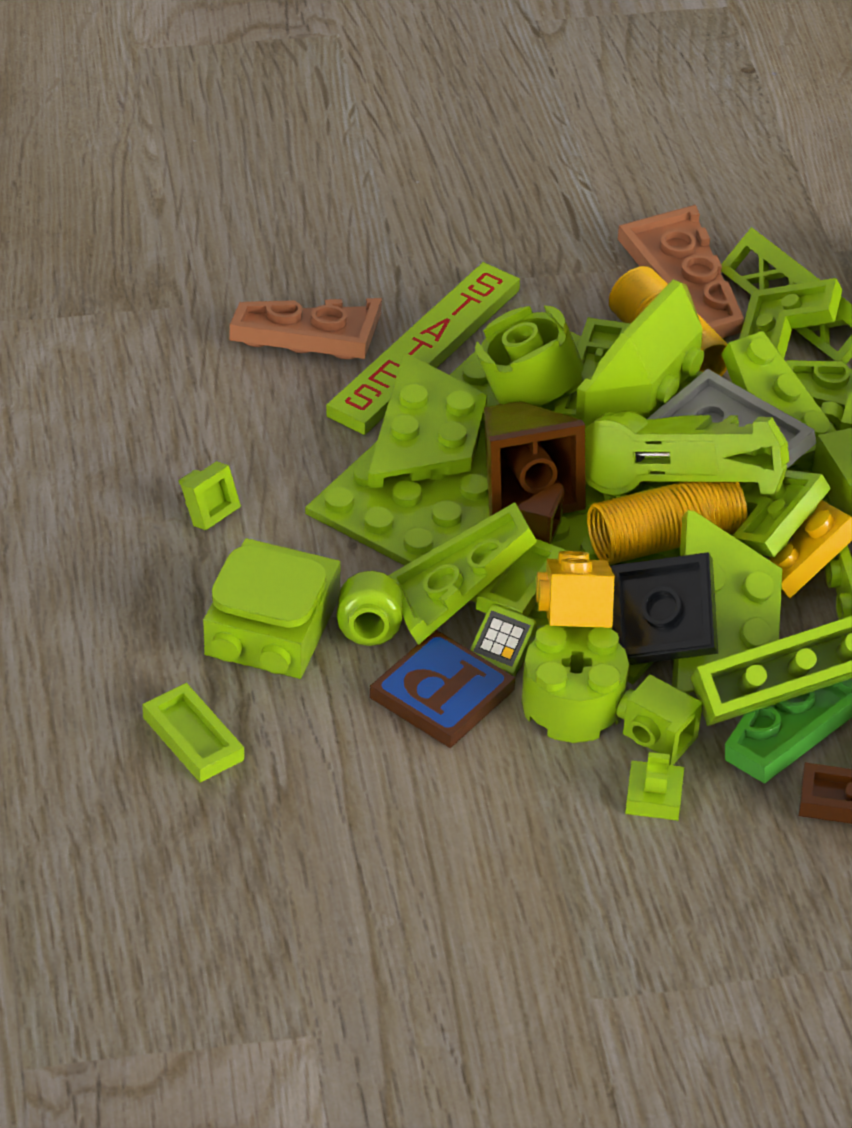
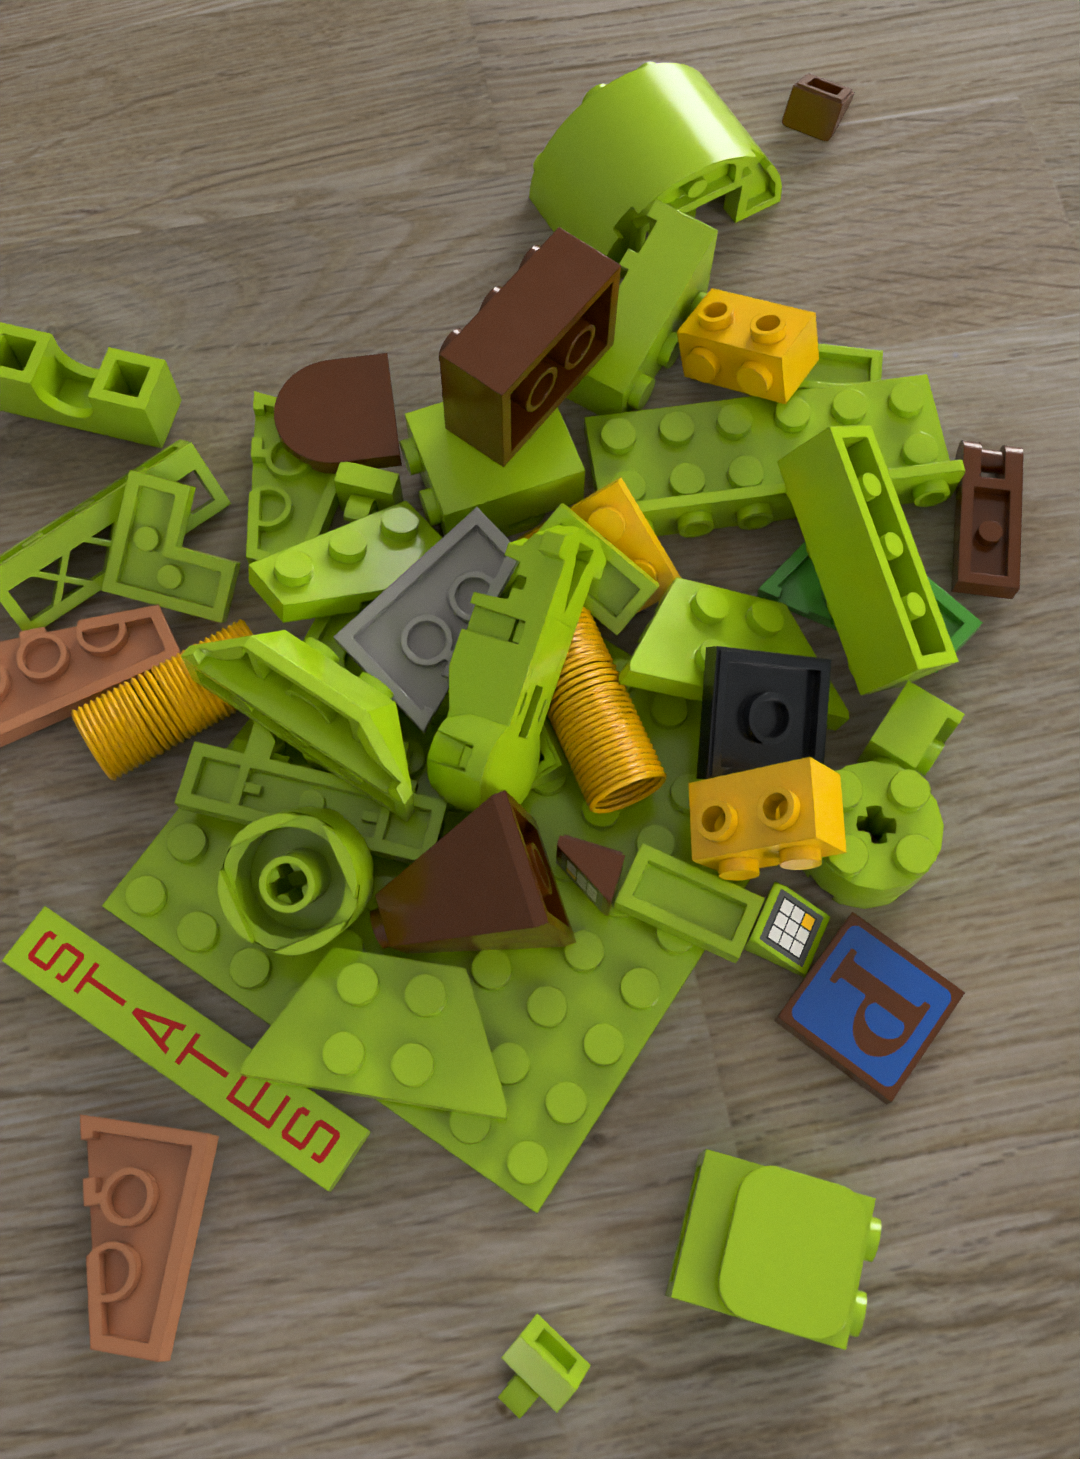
camera: 90 degrees left, 25 degrees up
(193, 732) = (993, 1351): lime tile -> none
(369, 608) = (758, 1106): lime head -> none
(459, 569) = (702, 984): lime wing -> none
(655, 788) = (999, 752): lime tile -> none

